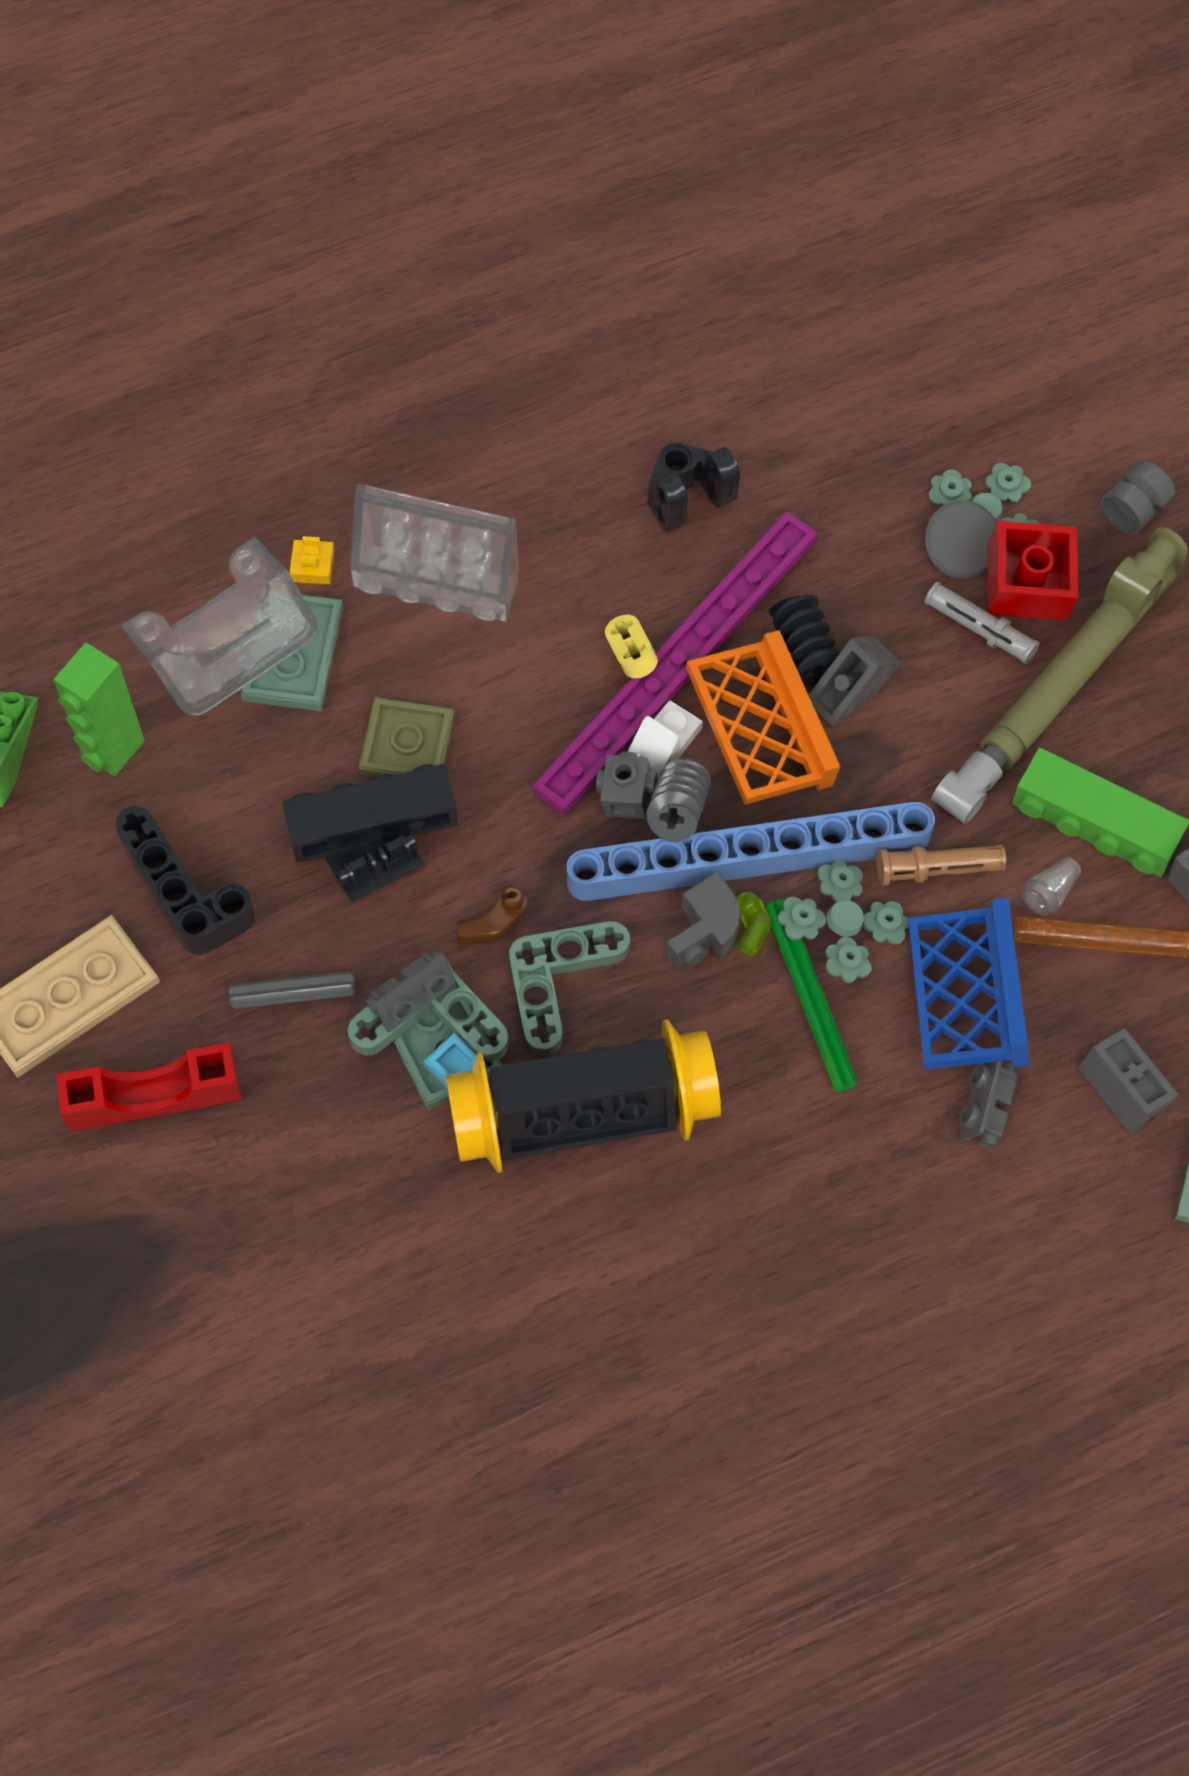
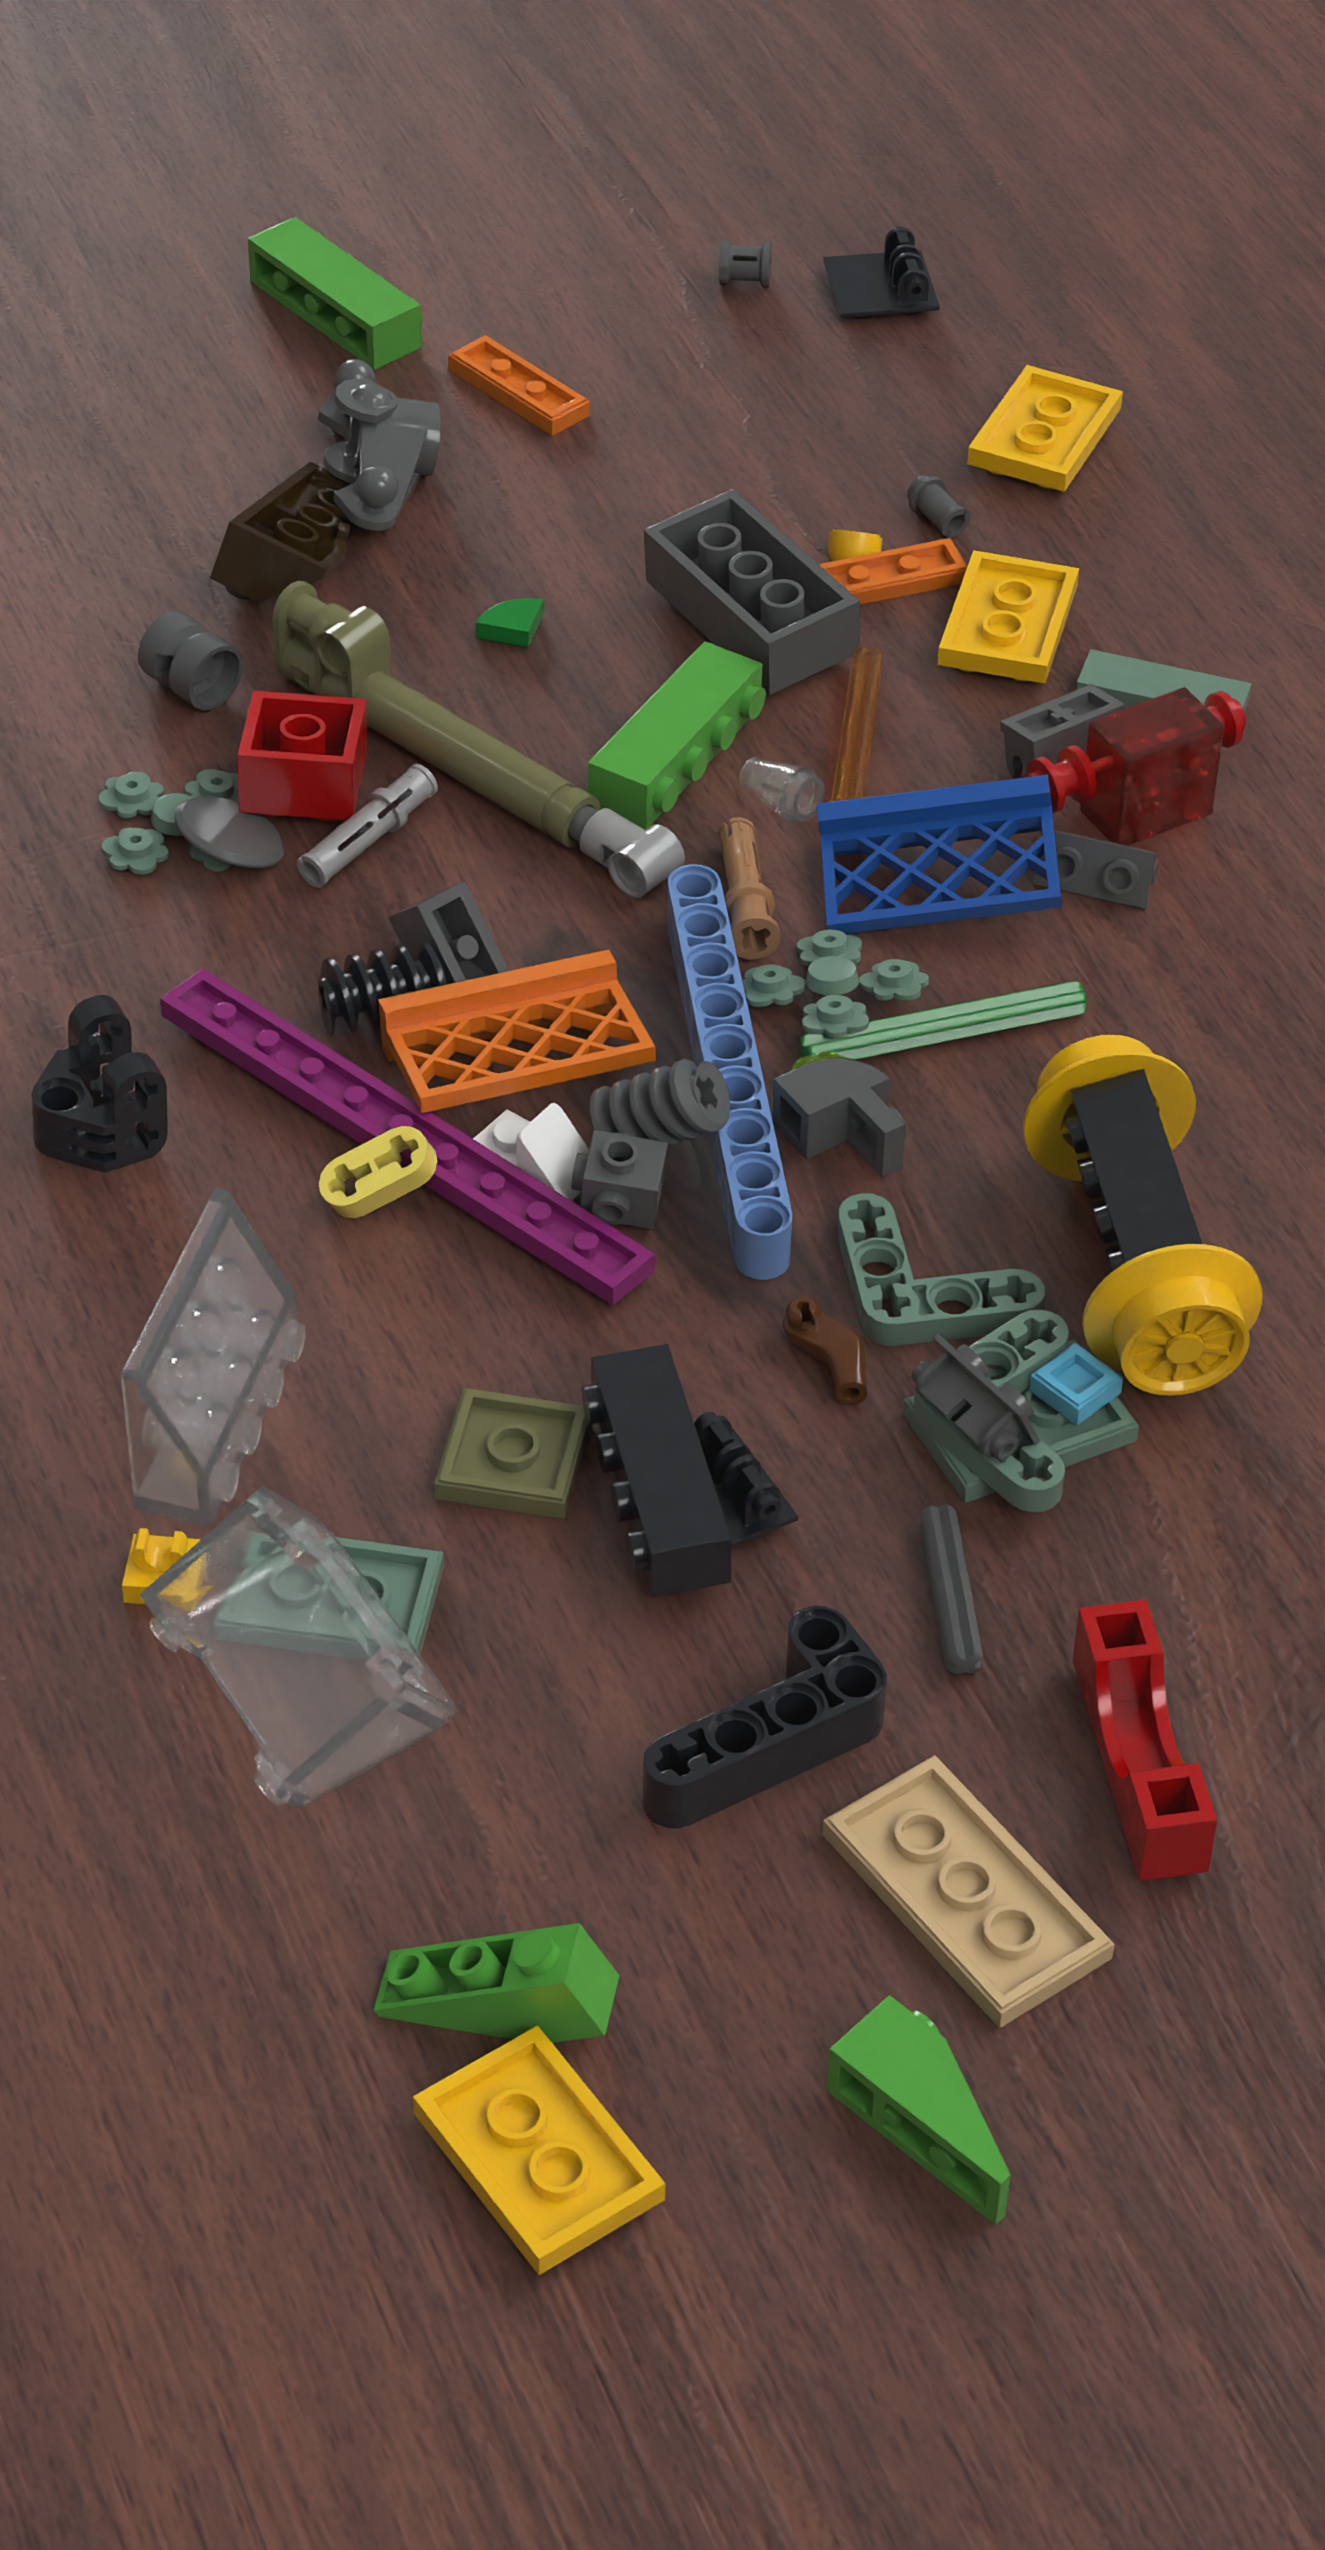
camera: 90 degrees left, 20 degrees down
(99, 710) = (494, 1755): bright green brick -> none
(1081, 1131) = (1147, 765): none -> clear red brick

